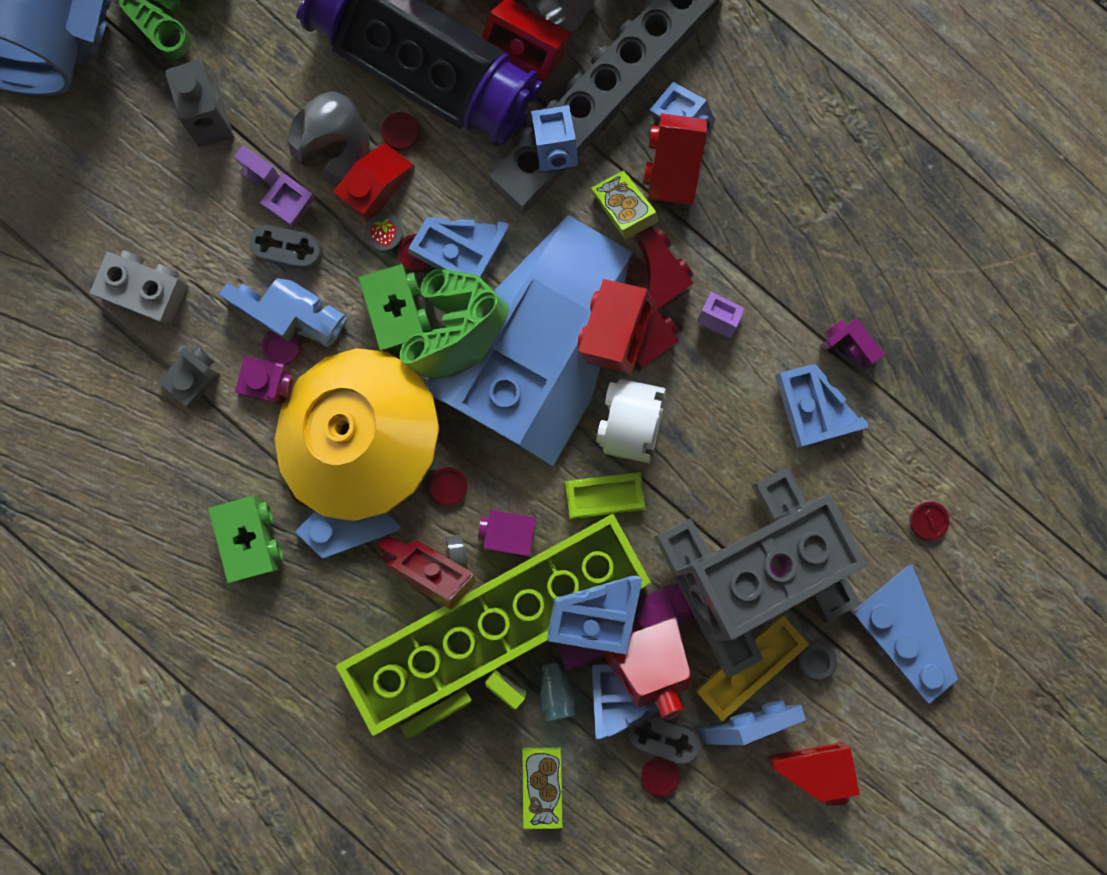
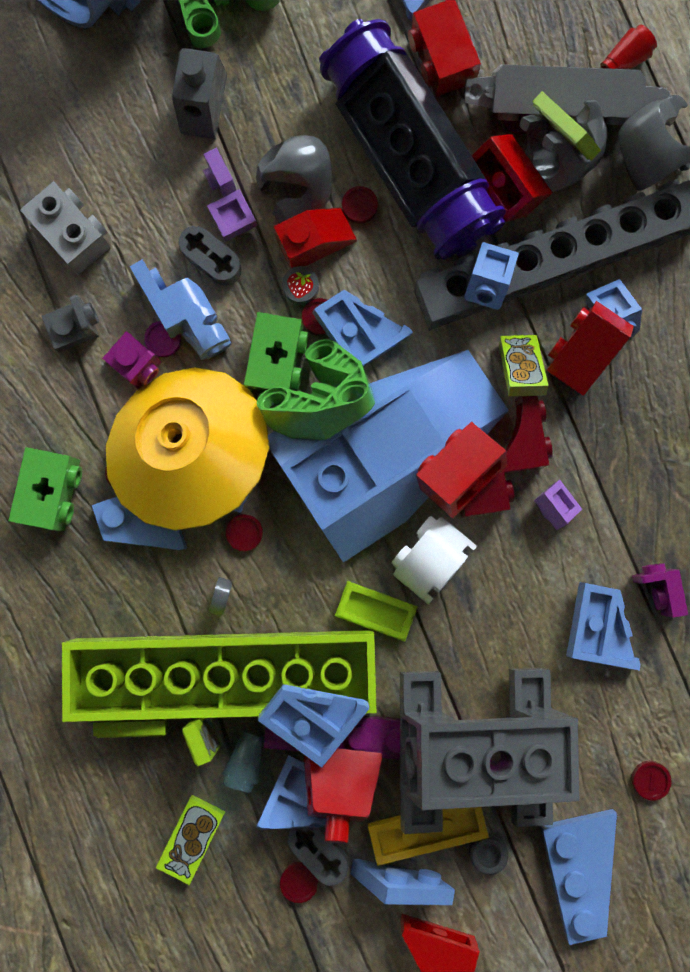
camera: 30 degrees right, 0 degrees up
(427, 570) = (186, 599): dark red hinge -> none
(507, 532) = (273, 600): magenta brick -> none

